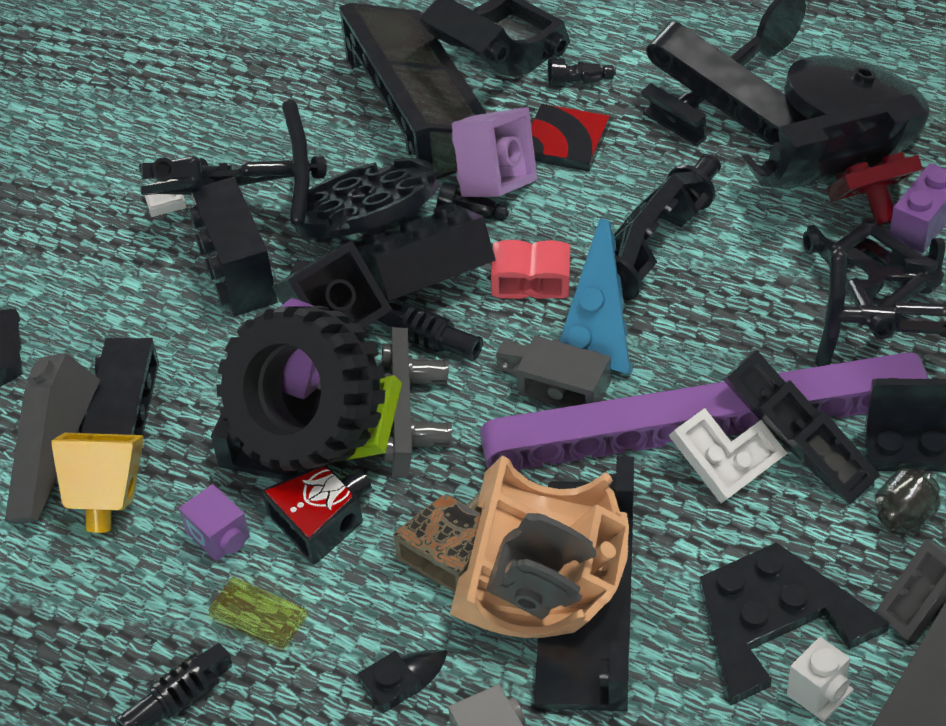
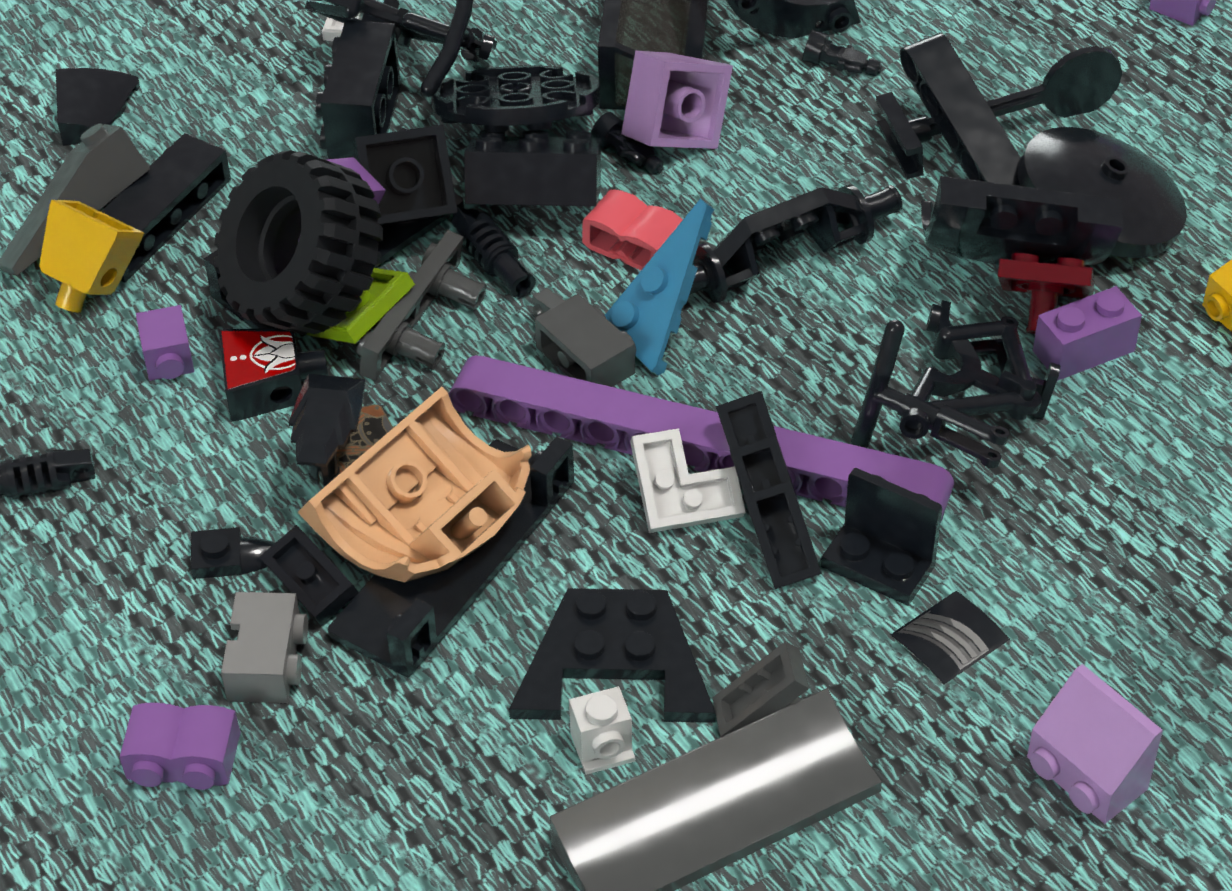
camera: 25 degrees right, 0 degrees up
(258, 612) = (149, 441): clear yellow tile -> none
(433, 526) = (323, 420): none -> black connector
(486, 663) = (309, 575): none -> black plate
(530, 564) = (410, 487): dark grey piece -> none
(568, 136) = (777, 116): tile -> none
(908, 500) = (825, 607): clear smoke head -> none

